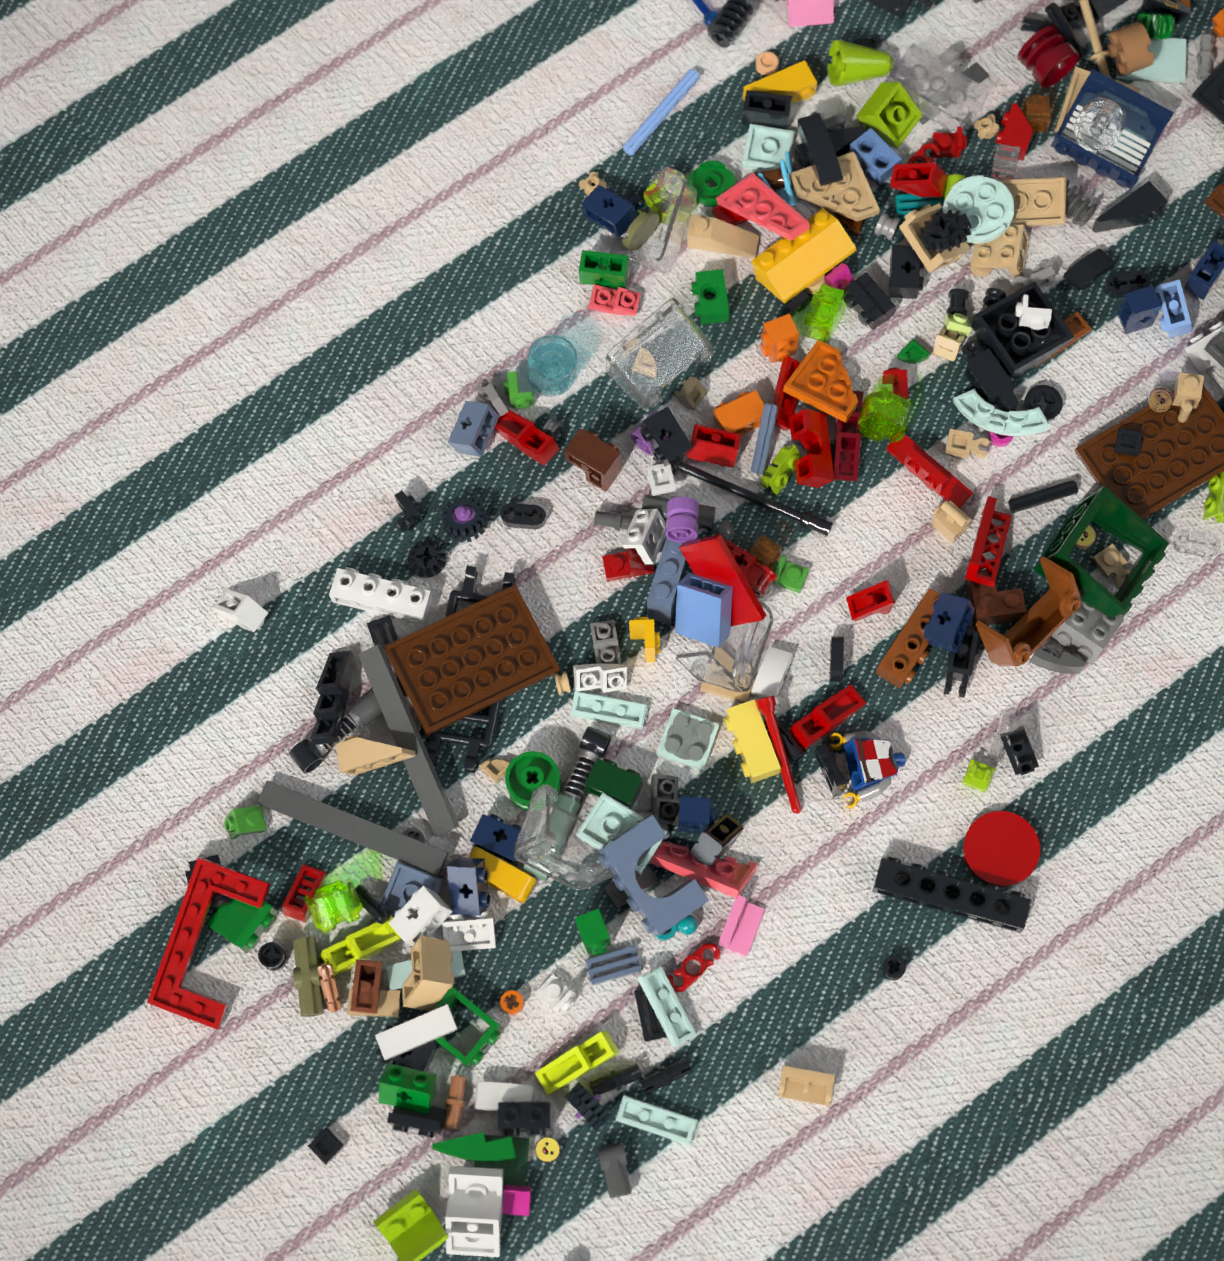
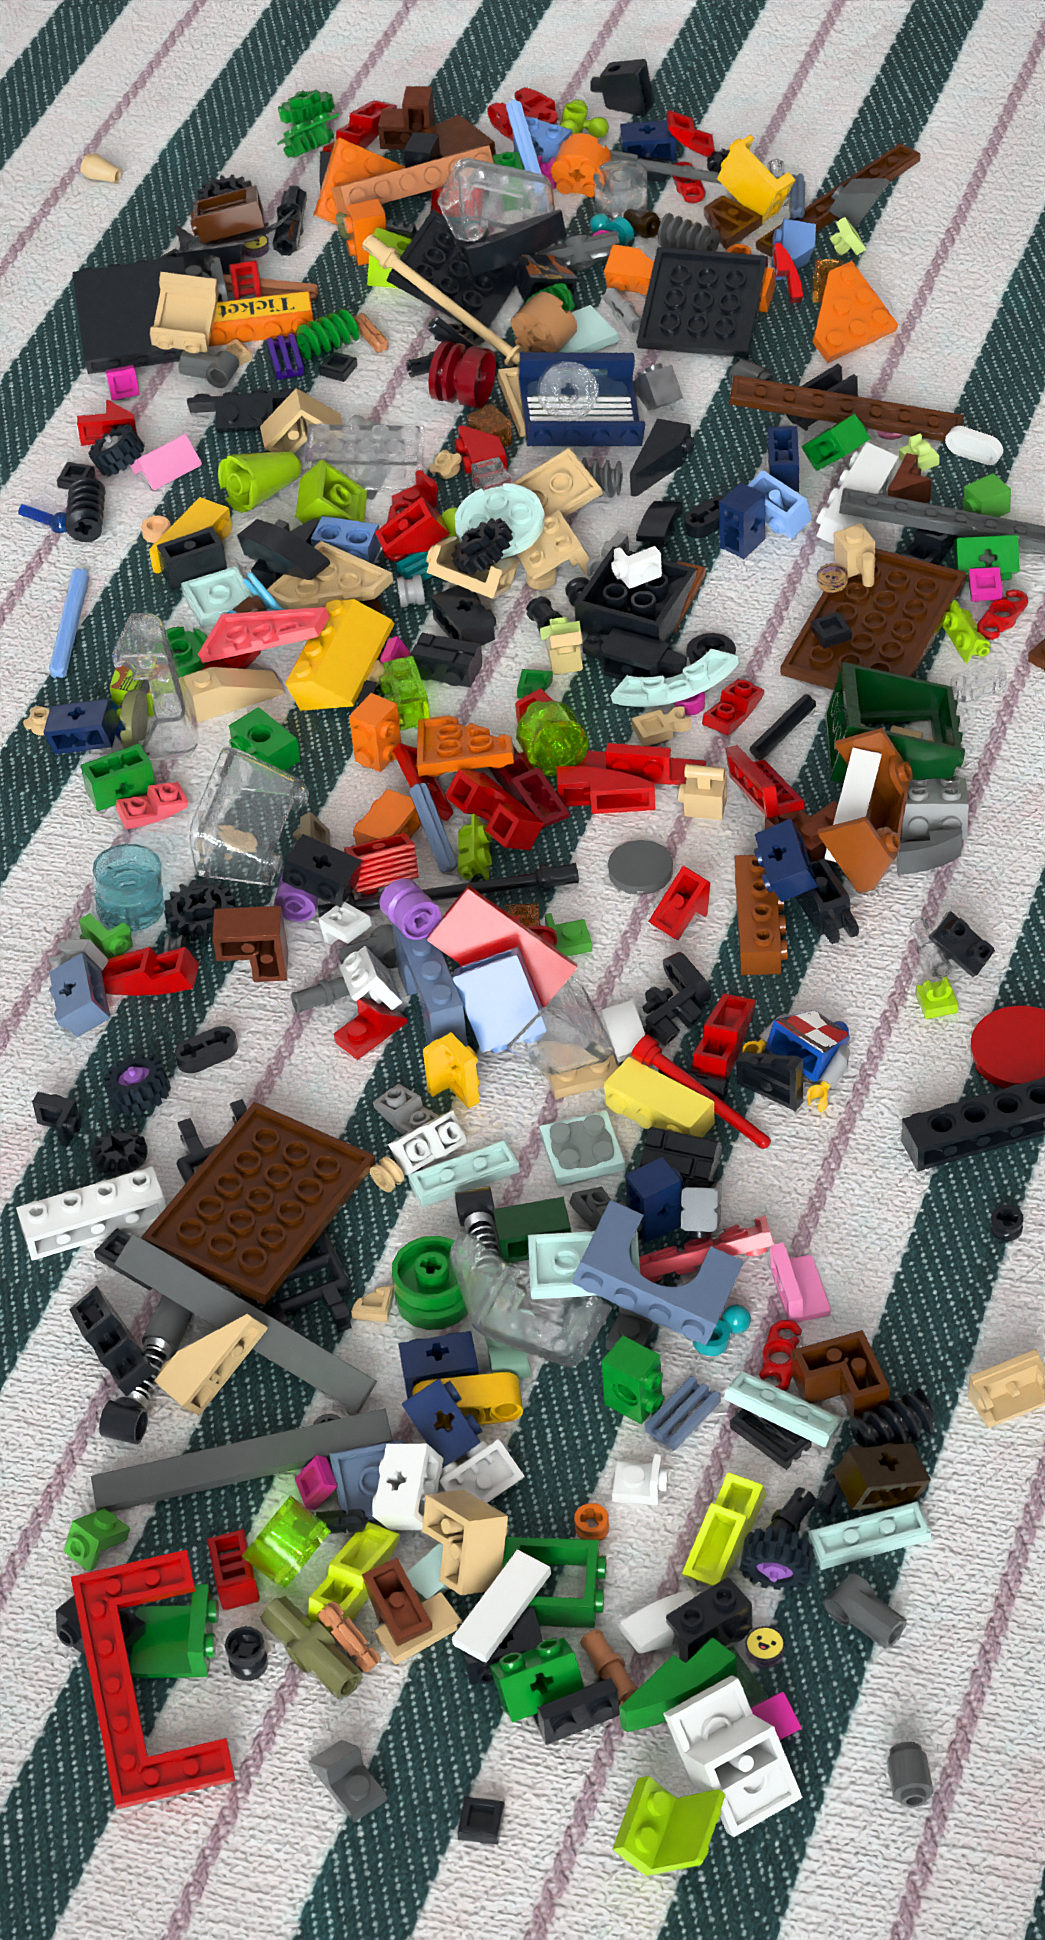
camera: 35 degrees left, 25 degrees down
(275, 1070) = (348, 1779): none -> dark grey slope
(381, 871) = (316, 1482): none -> dark pink tile
(583, 417) = (198, 908): none -> black gear
(670, 1093) = (881, 1476): none -> dark brown brick
(719, 1006) = (841, 1368): none -> reddish brown brick
(720, 1063) = (894, 1421): none -> black piece
(734, 792) = (691, 1155): none -> black brick
(818, 677) = (659, 1021): none -> black hips
(873, 549) = (640, 867): none -> dark grey tile
(891, 474) = (604, 790): none -> red slope
(911, 28) = (288, 424): none -> tan brick
(1026, 458) = (734, 707): none -> red slope
(1026, 604) = (856, 788): none -> white sticker
(1173, 147) = (657, 386): none -> flat silver slope

